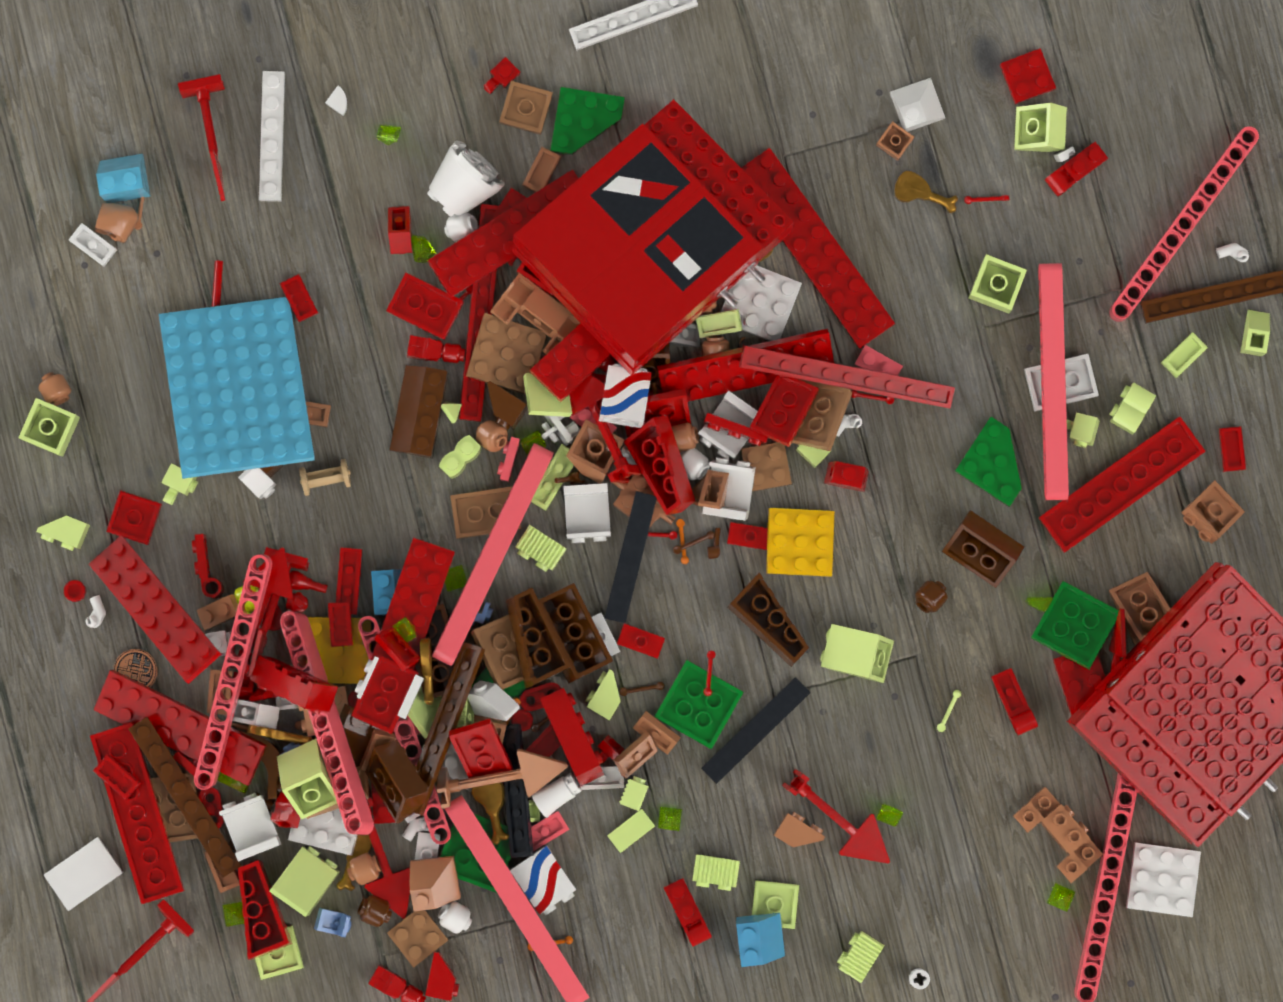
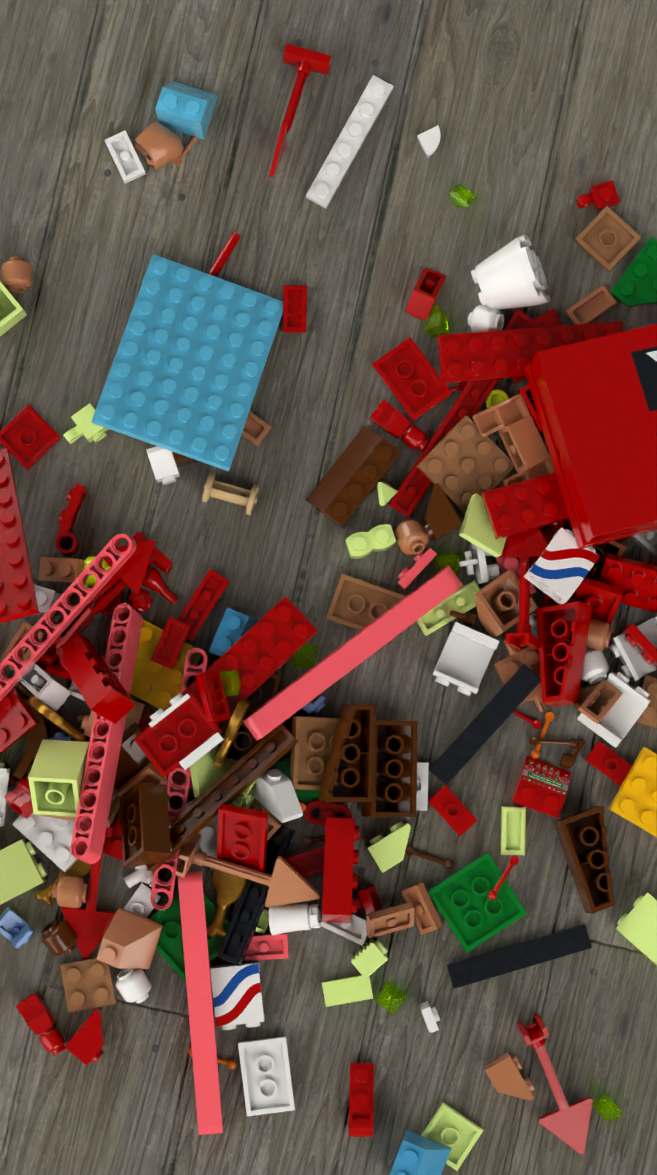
camera: 30 degrees right, 0 degrees up
(501, 285) = (495, 397): none -> neon yellow tile
(524, 718) = (300, 826): red tile -> none
(540, 548) = (402, 670): yellowish green brick -> none
(601, 934) = (266, 1076): none -> white plate
(698, 631) = (513, 830): none -> yellowish green tile
(703, 584) = (541, 787): none -> red slope
(708, 815) = (430, 1016): none -> white plate
(715, 871) = (409, 1074): yellowish green brick -> none

